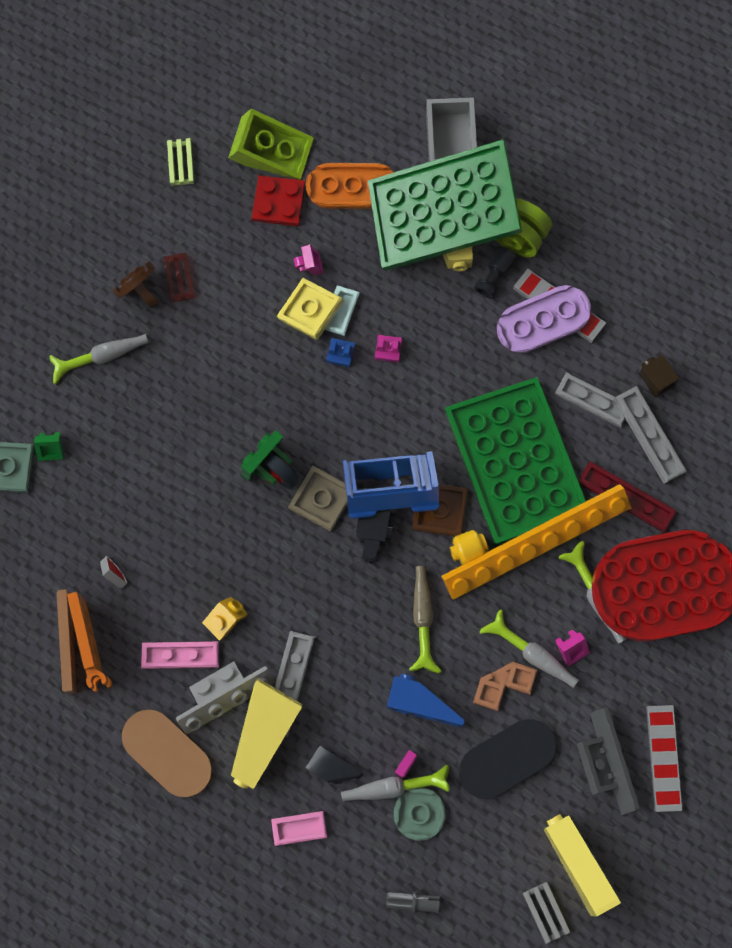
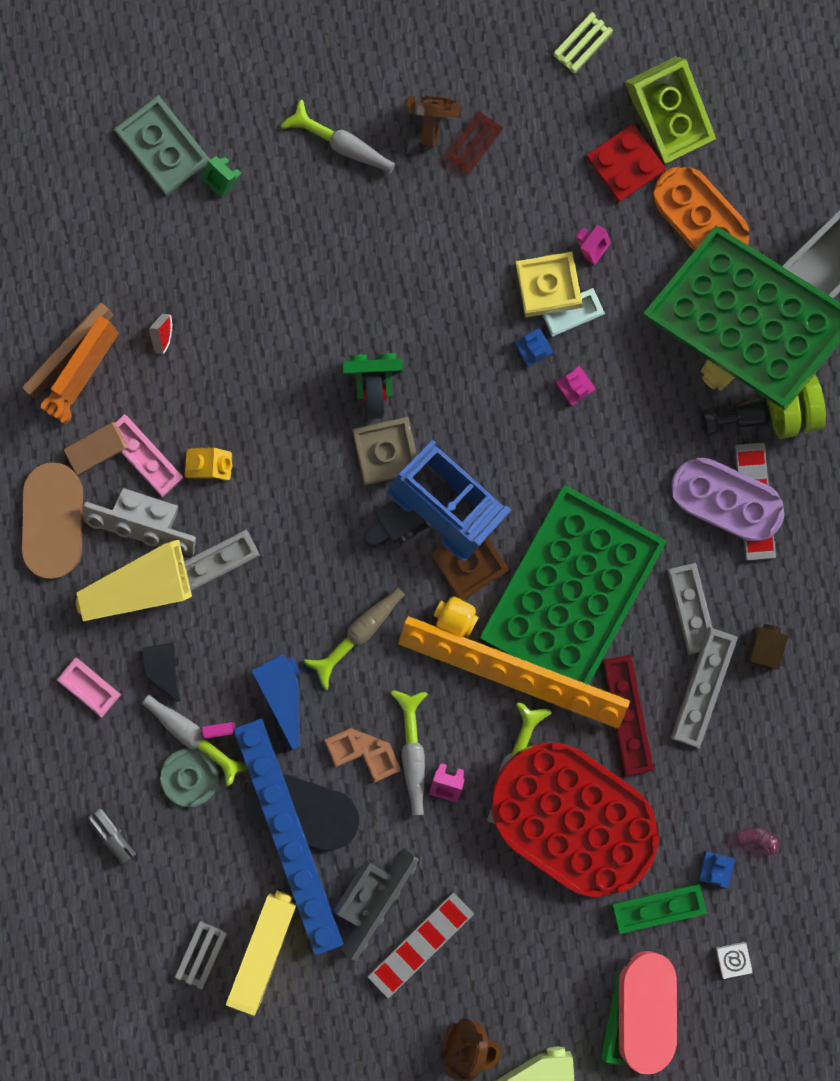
camera: 45 degrees right, 10 degrees up
(147, 681) = (96, 448): none -> medium nougat tile
(518, 780) = (288, 837): none -> blue plate

